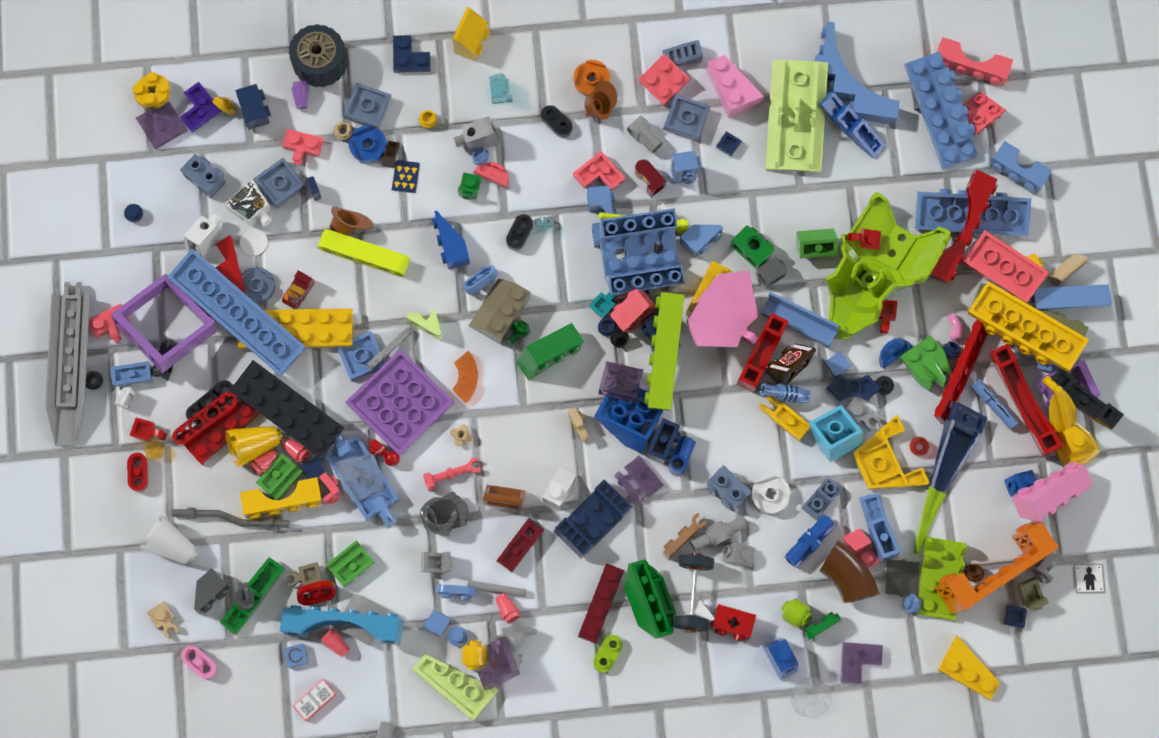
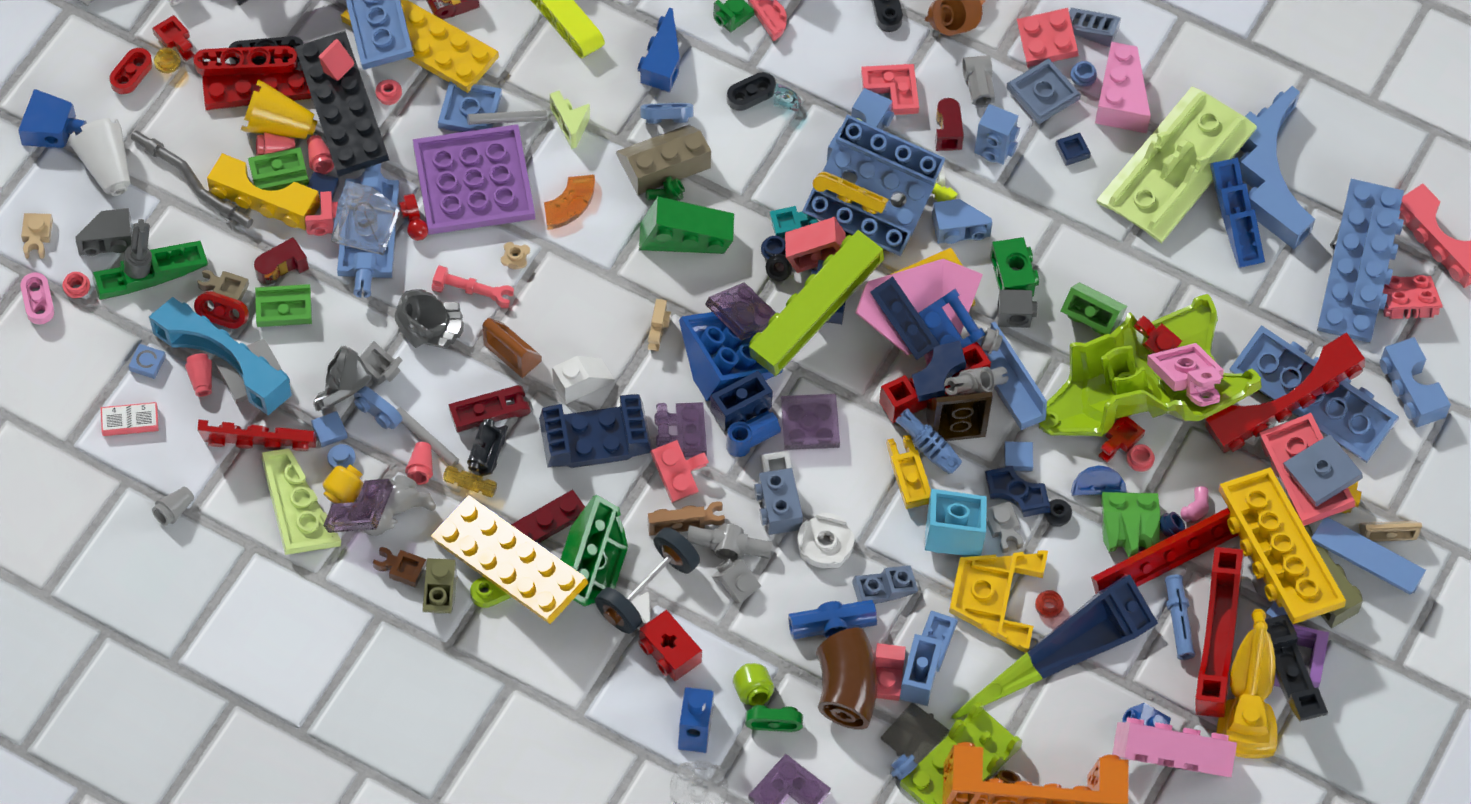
camera: 35 degrees right, 15 degrees down
(115, 541) = (48, 121): none -> blue torso
(211, 632) = (73, 279): none -> coral plate
(266, 386) = (335, 60): none -> coral slope
(305, 384) = (388, 98): none -> coral plate
(325, 536) = (280, 261): none -> dark red leg
(397, 662) = (256, 435): none -> red wing
(426, 589) = (344, 378): none -> dark grey hair
(542, 578) = (484, 458): none -> black hinge
(543, 599) = (470, 481): none -> clear yellow axle
(547, 679) = (403, 568): none -> reddish brown plate
(580, 682) = (440, 585): none -> olive slope
(608, 636) = (509, 559): none -> plate
(631, 265) = (850, 192): none -> yellow plate
(656, 509) = (676, 470): none -> coral plate
(701, 90) = (1083, 73): none -> medium blue plate
(707, 464) = (775, 461): none -> white slope
(708, 425) = (810, 421): none -> clear purple plate
(723, 327) = (904, 318): none -> dark blue plate
(745, 318) = (941, 325): none -> blue plate
(765, 338) = (945, 362): none -> dark blue tile
(778, 306) = (991, 340): none -> light grey plate
(791, 340) = (976, 380): none -> light grey pin
(904, 319) = (1140, 458): none -> coral plate
(910, 252) = (1189, 370): none -> bright pink plate
(1018, 264) = (1323, 470): none -> sand blue plate

